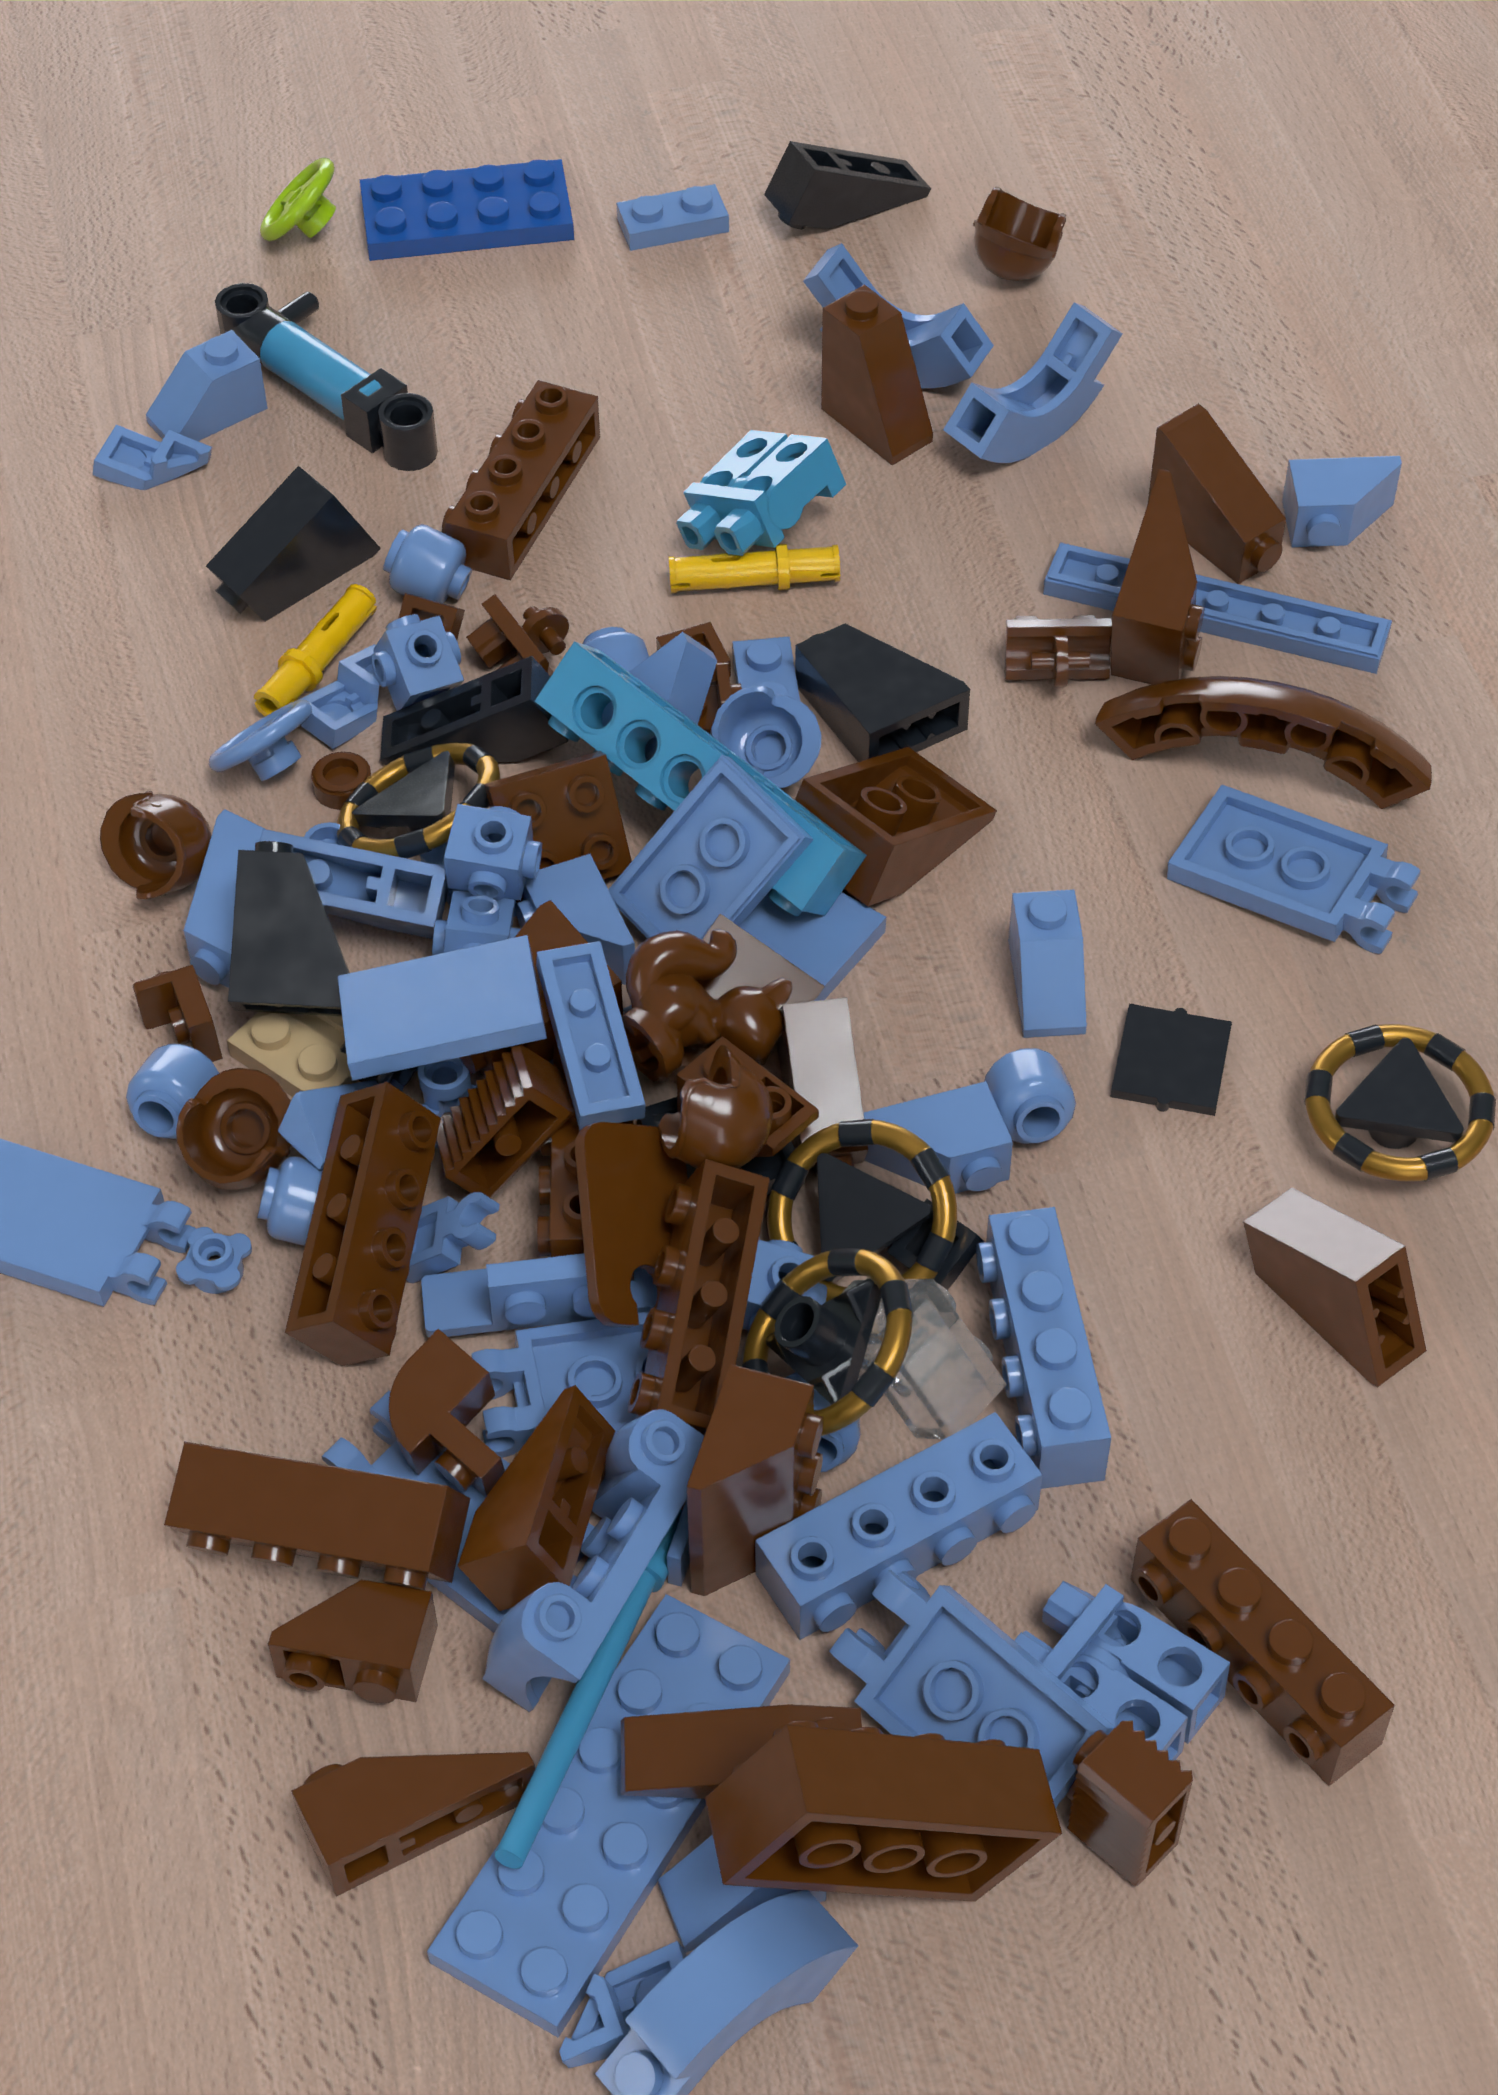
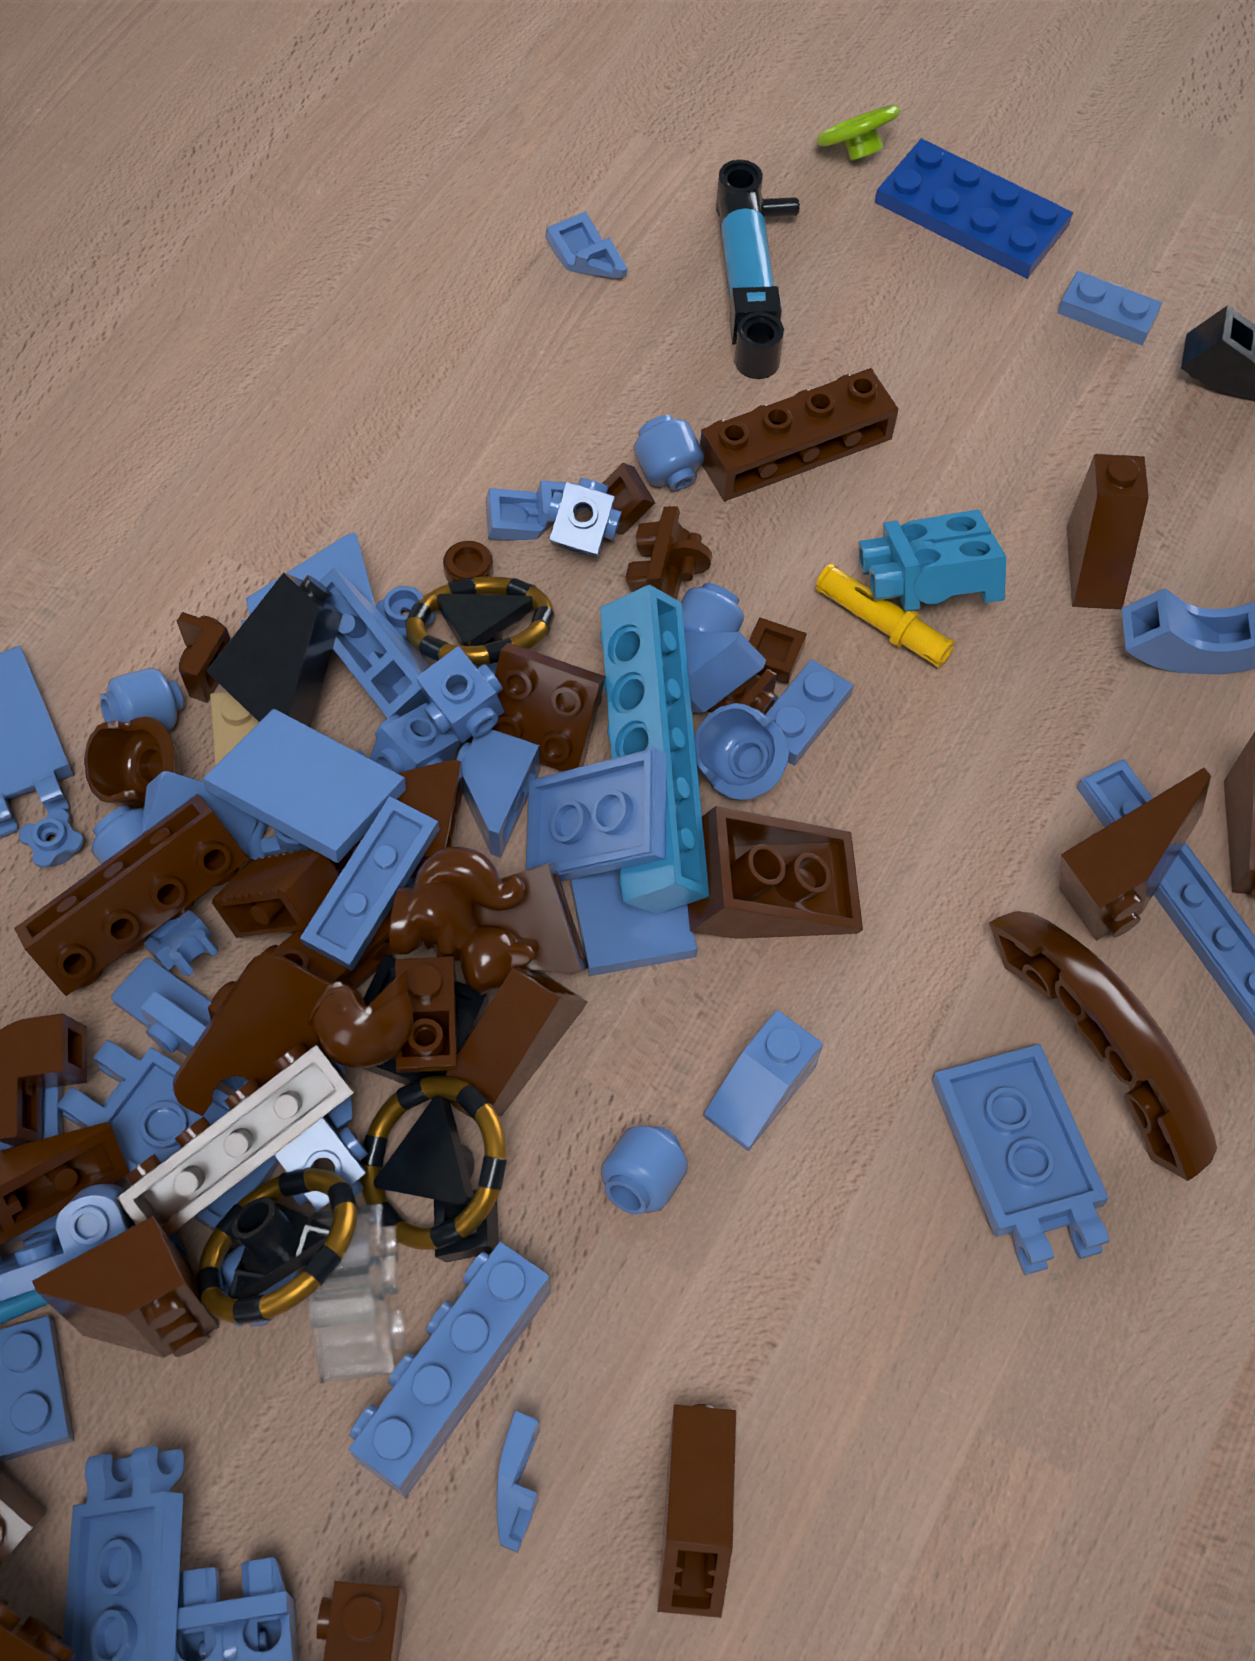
camera: 40 degrees right, 10 degrees up
(155, 842) = (302, 523): reddish brown helmet -> none
(210, 389) = (664, 227): medium blue slope -> none
(264, 742) = (438, 503): medium blue piece -> none
(290, 548) = (595, 377): black slope -> none
(302, 667) = (525, 466): yellow pin -> none
(487, 712) = (575, 583): black slope -> none
(878, 694) = (865, 778): black slope -> none
(898, 1521) = (227, 1409): medium blue brick -> none
(943, 345) = (1173, 529): medium blue arch -> none
(960, 1128) = (556, 1152): medium blue slope -> none
(1057, 648) = (1027, 839): reddish brown hips -> none
(1167, 1376) = (515, 1502): none -> medium blue slope
(1171, 1059) = (784, 1224): black piece -> none
(1400, 1103) = (894, 1413): piece -> none

